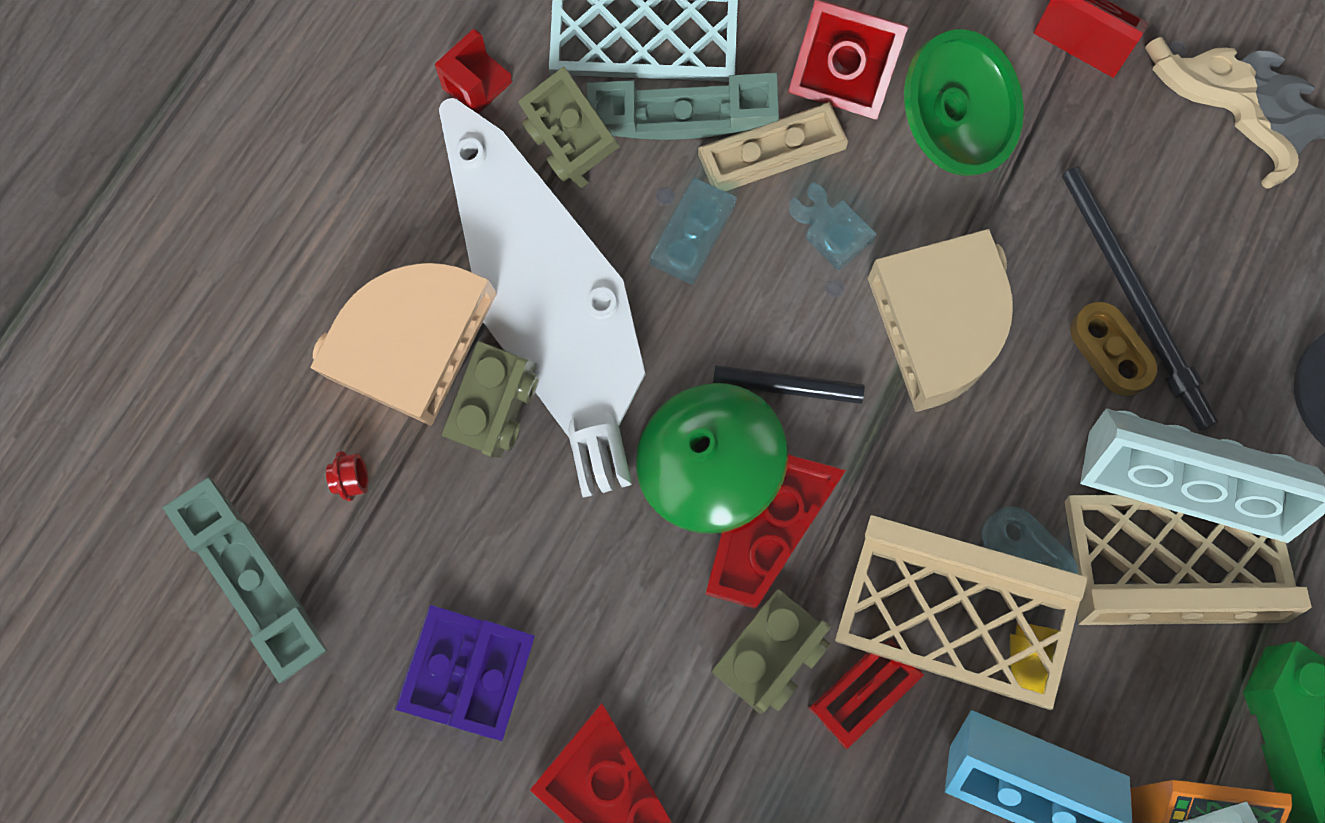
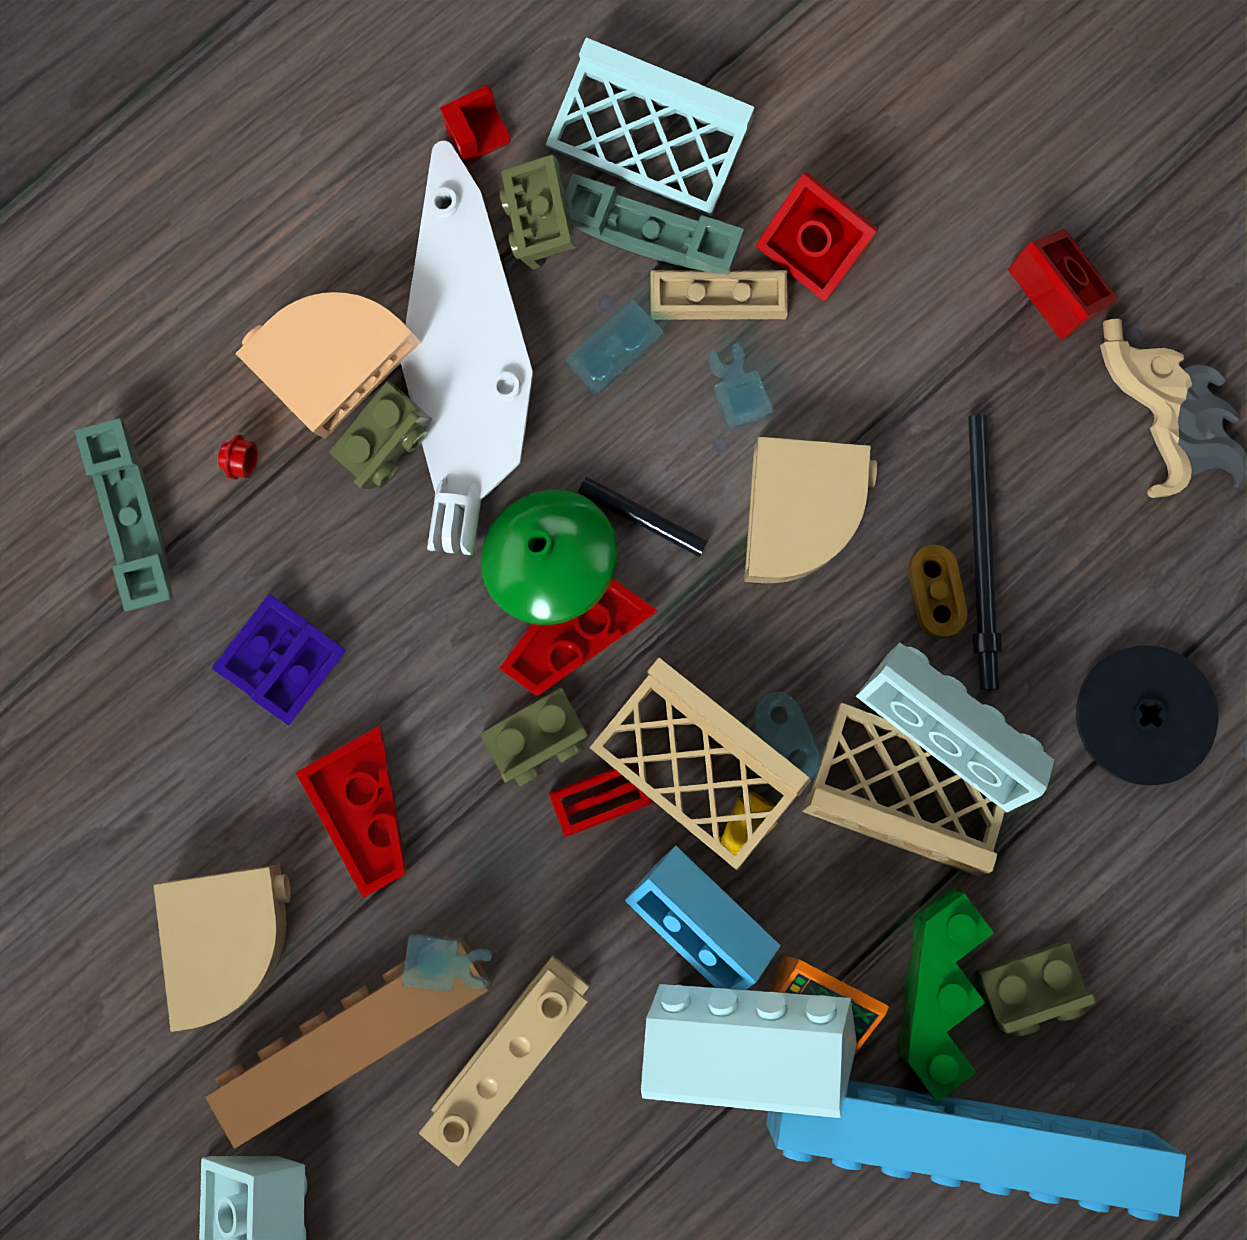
camera: 15 degrees right, 10 degrees up
(963, 102) = (923, 322): green dish -> none

